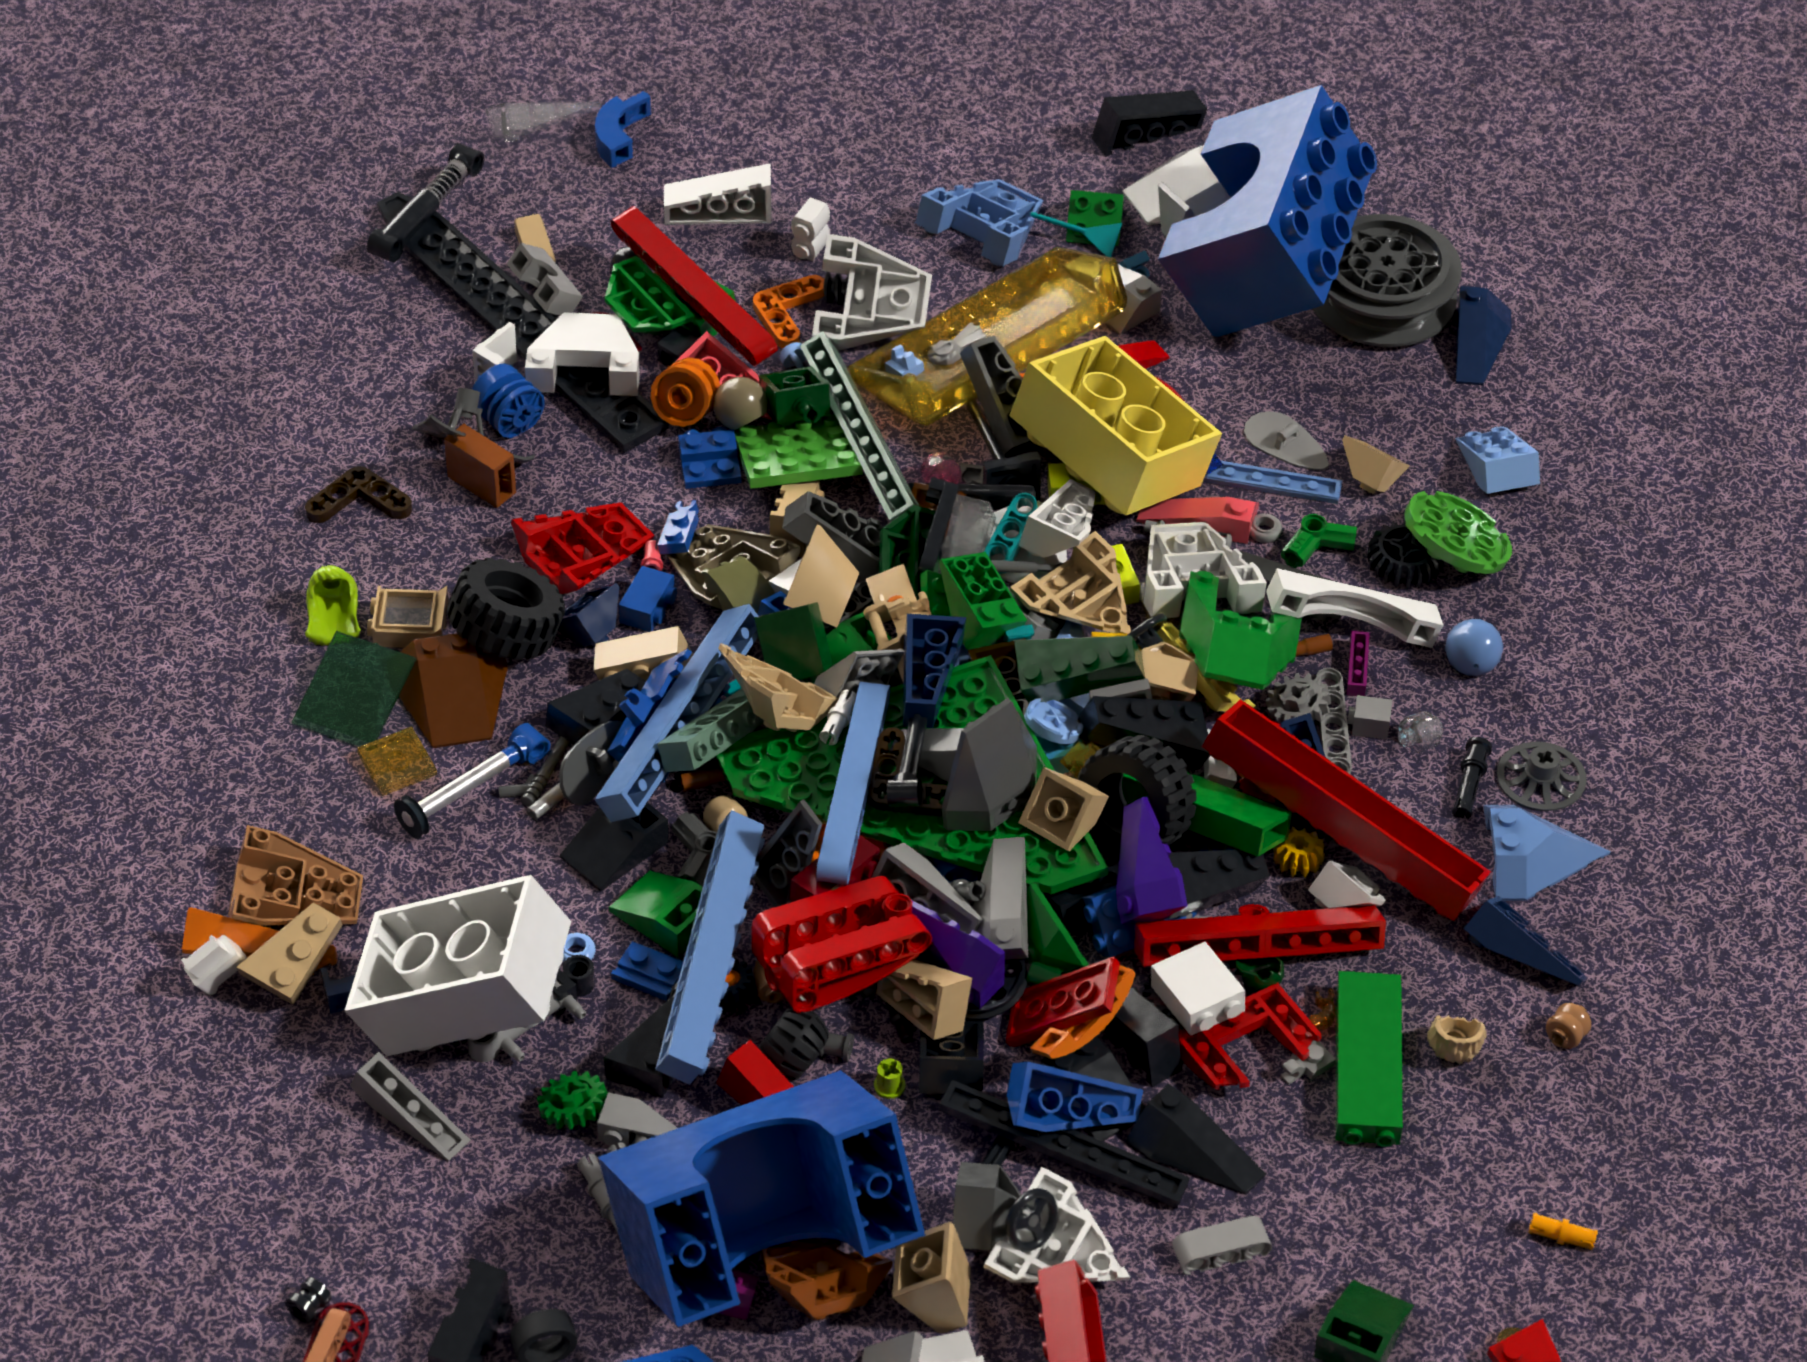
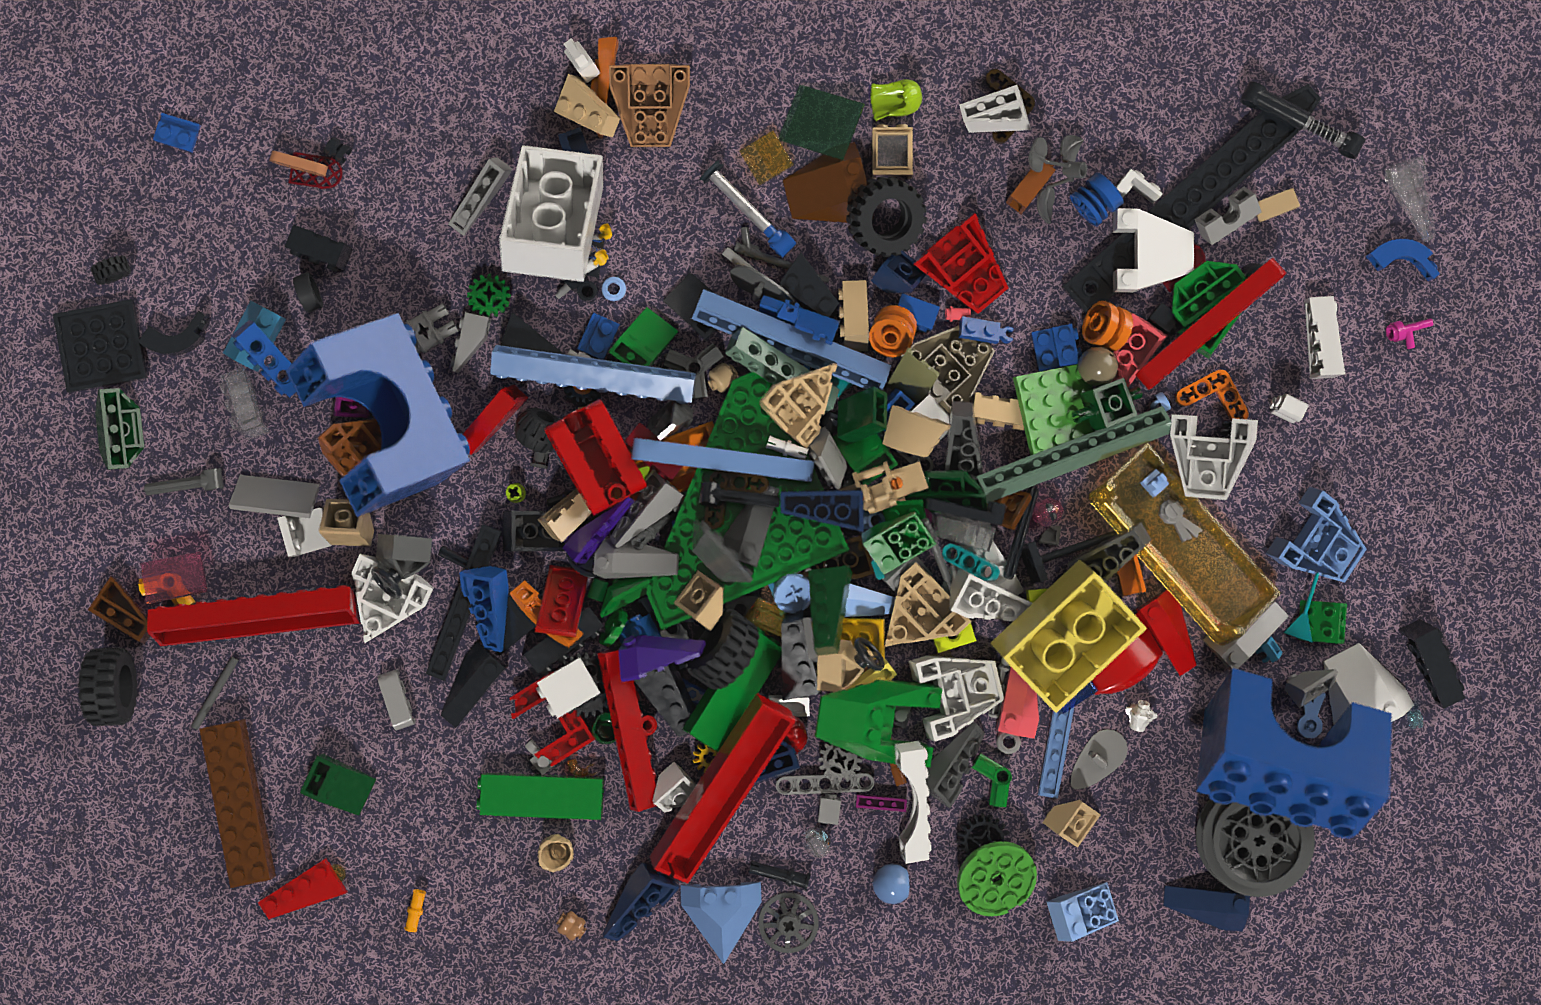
camera: 90 degrees right, 40 degrees up
(371, 492) = (996, 112): none -> white wedge
(674, 603) = (892, 331): none -> orange wheel
(715, 135) = (1398, 331): none -> dark pink piece
(1104, 940) = (614, 627): none -> green tile
(1224, 389) = (1140, 715): none -> white rock

